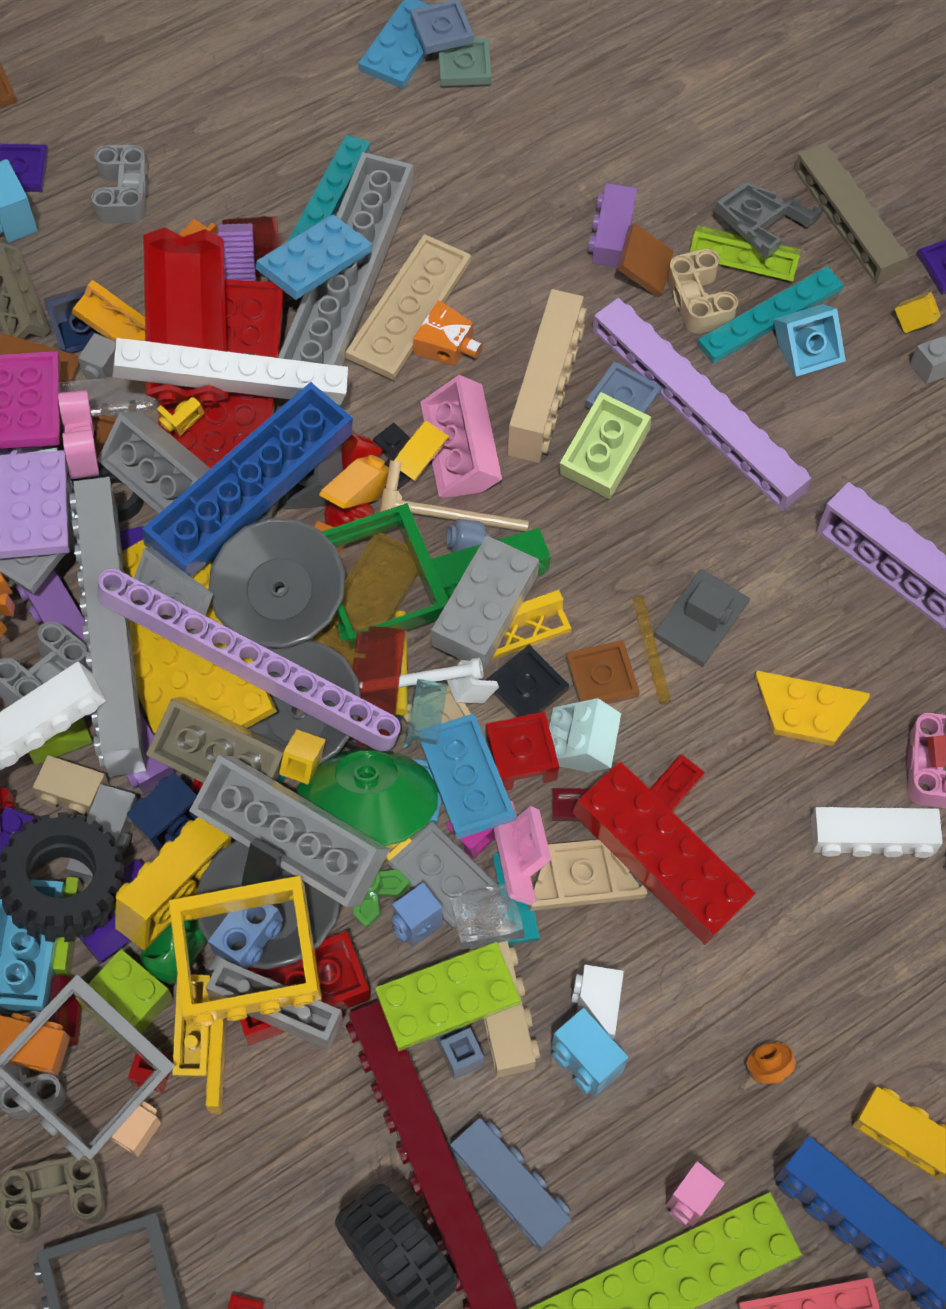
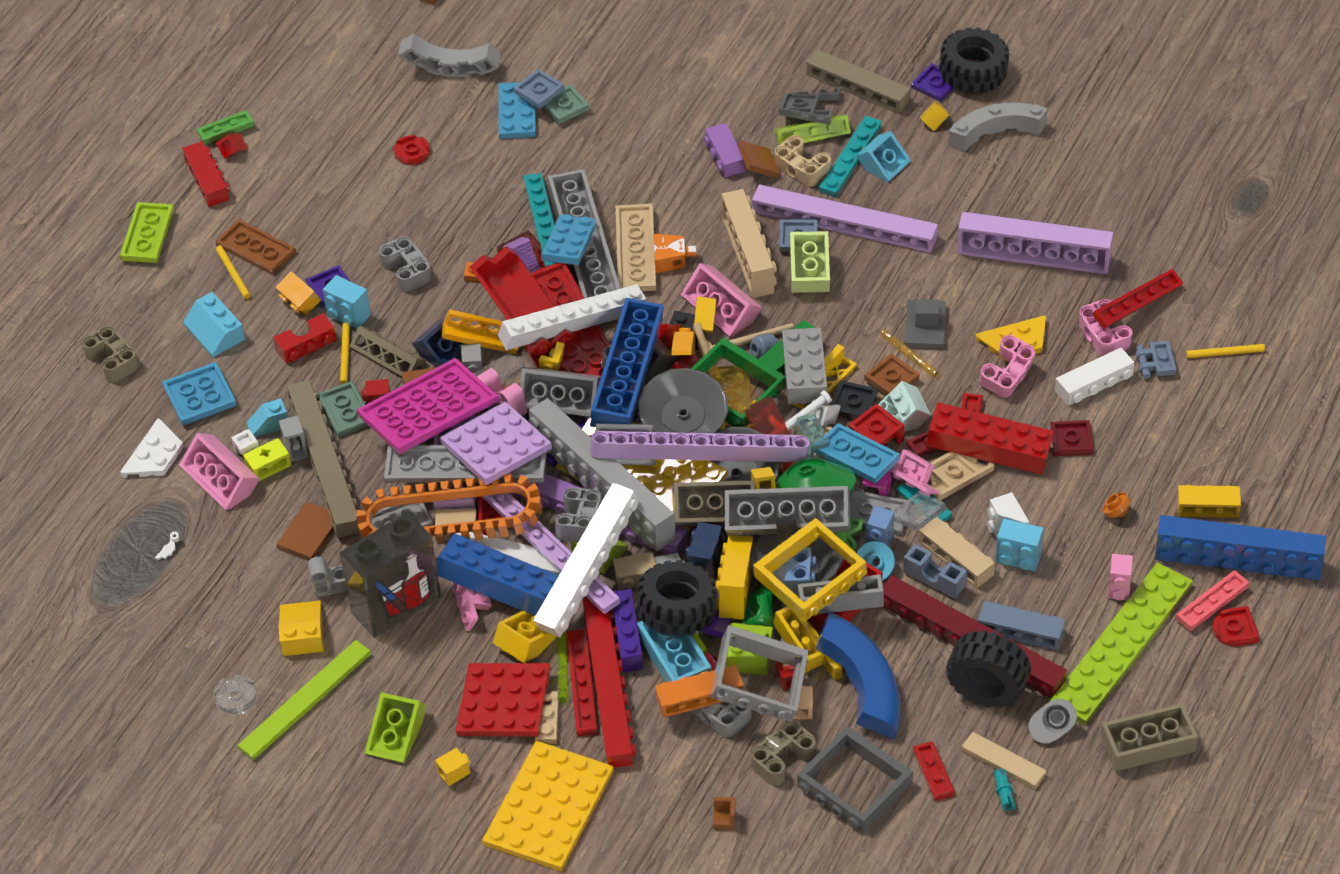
camera: 25 degrees left, 15 degrees down
(244, 33) = (411, 150): none -> red tile
(245, 1141) = (869, 672): none -> blue brick
(371, 955) = (878, 550): none -> medium azure dish
(447, 996) = (927, 552): lime plate -> none
(771, 760) = (1014, 372): none -> bright pink beam
(783, 909) = (1072, 438): none -> dark red tile

